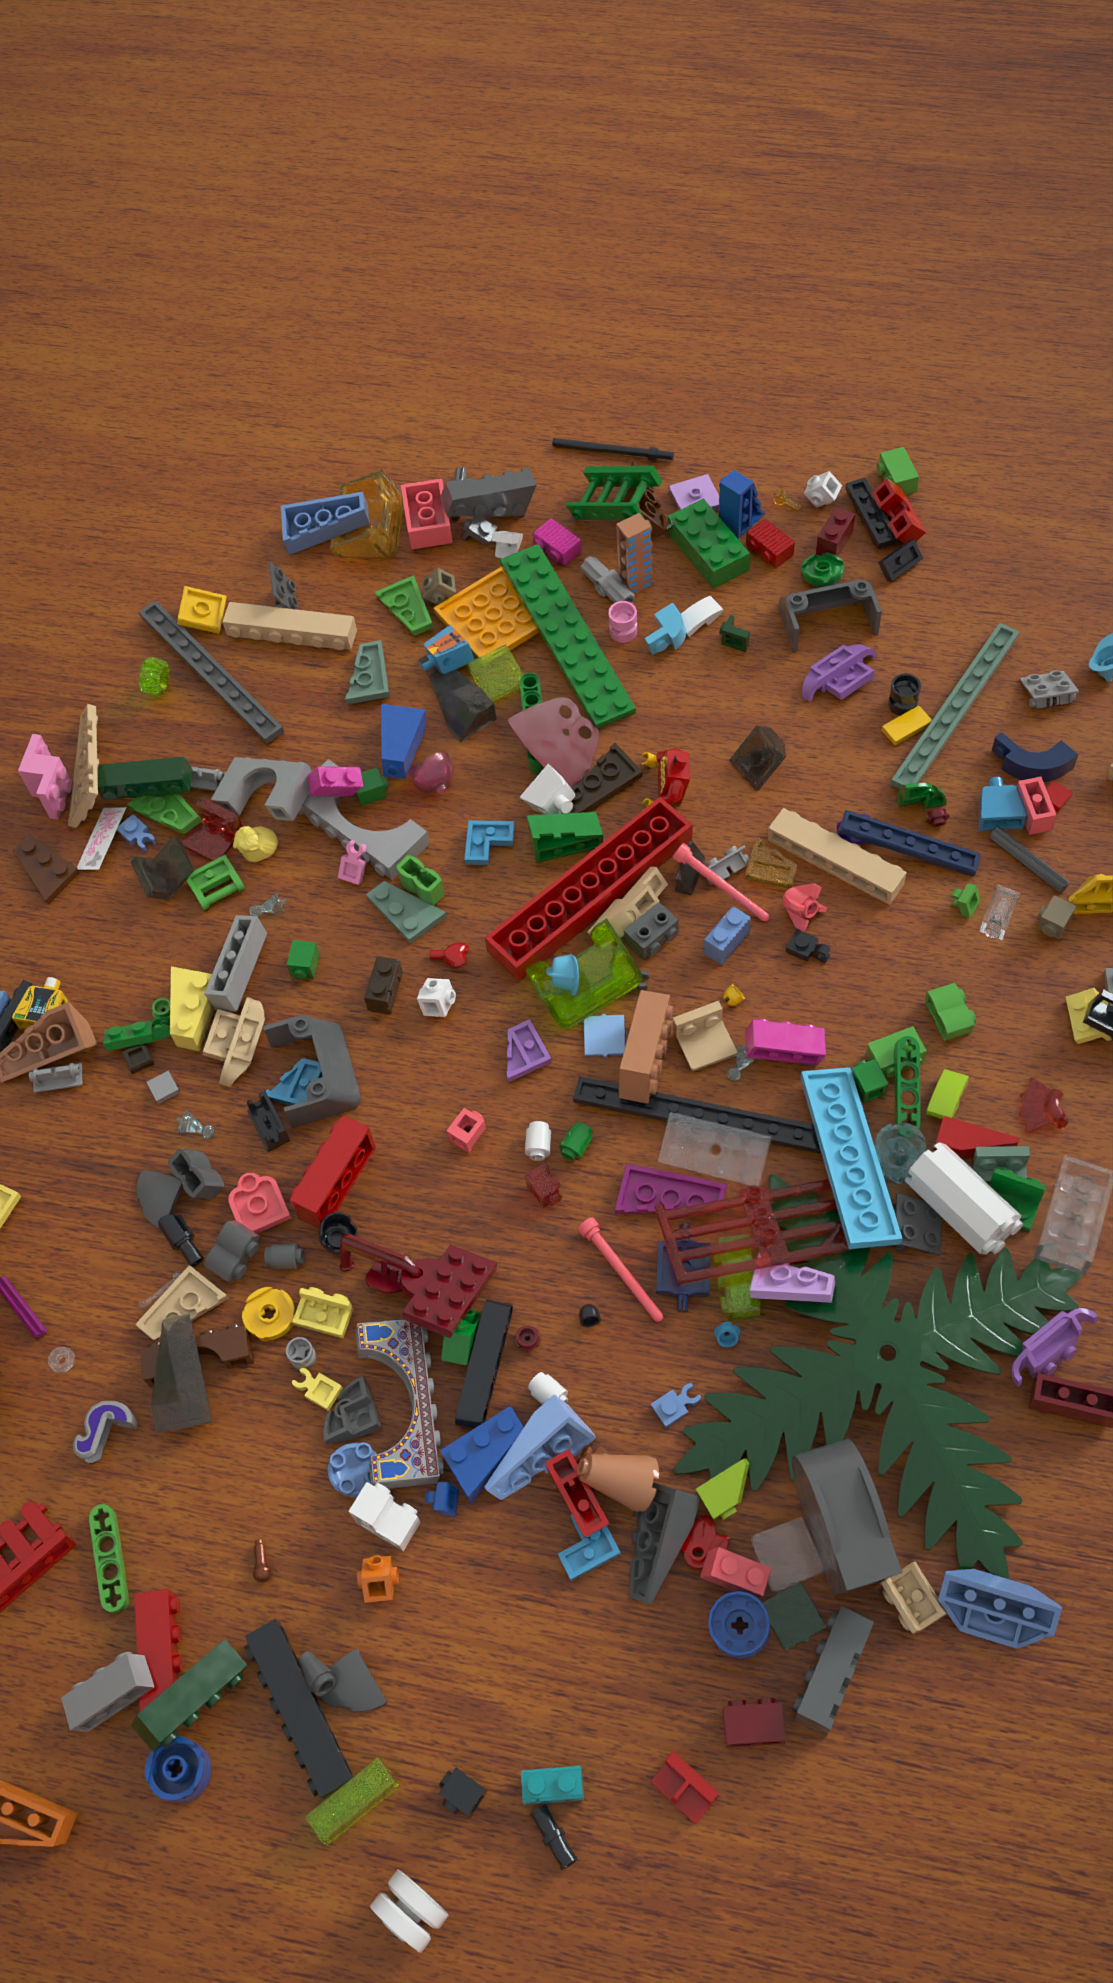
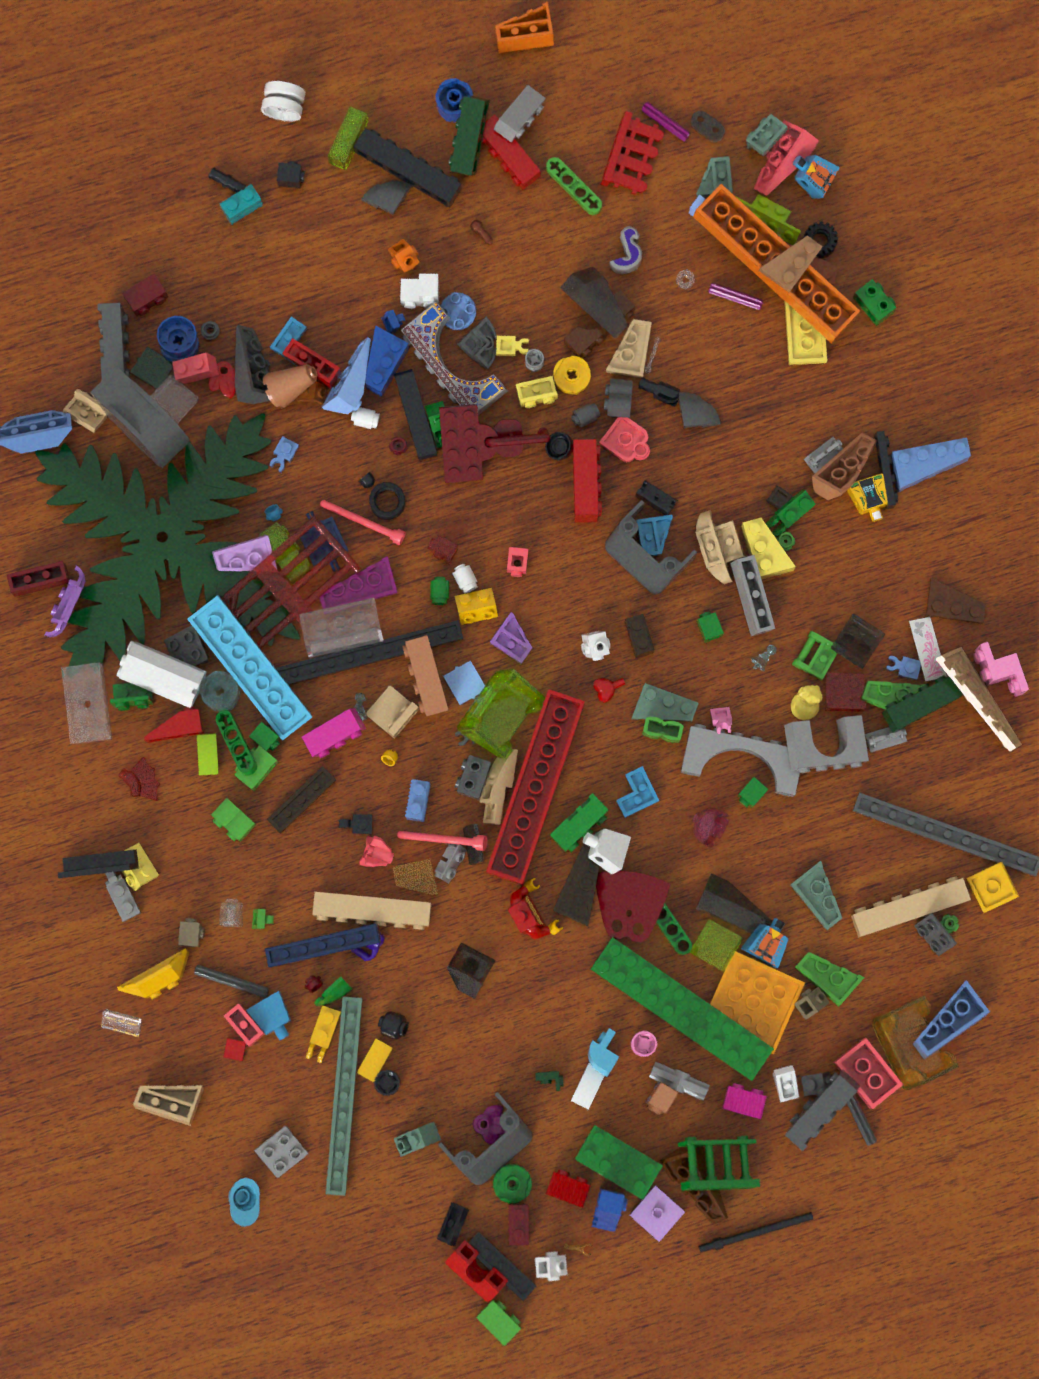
camera: 145 degrees right, 20 degrees up
(154, 676) = (983, 801): clear neon green gear -> none
(163, 1087) = (746, 486): light grey tile -> none
(188, 1123) = (707, 469): clear light blue piece -> none
(196, 1173) = (677, 434): dark grey brick -> none
(264, 599) = (954, 923): none -> bright green plate
(317, 1675) = (407, 187): dark grey cone -> none
(334, 781) = (771, 770): dark pink brick -> none
(400, 738) = (753, 843): blue slope -> none
(543, 1106) = (476, 606): none -> yellow bracket
(564, 973) = (513, 701): medium azure piece -> none
(573, 1258) = (382, 487): none -> black tyre
(684, 1788) = (168, 244): red panel -> none
(692, 1615) = (207, 325): none -> dark grey plate
(725, 1490) = (226, 413): lime slope -> none
(816, 624) = (493, 1128): none -> magenta plate
(839, 672) = (448, 1084): medium lavender plate -> none
(859, 997) = (301, 800): none -> dark brown plate
(870, 742) = (393, 1025): none -> black head
(898, 638) = (417, 1139): none -> sand green slope
(951, 769) = (323, 1031): none -> yellow hinge
(1011, 1158) = (150, 718): sand green bracket -> none
(1027, 765) = (252, 1070): dark blue arch -> none

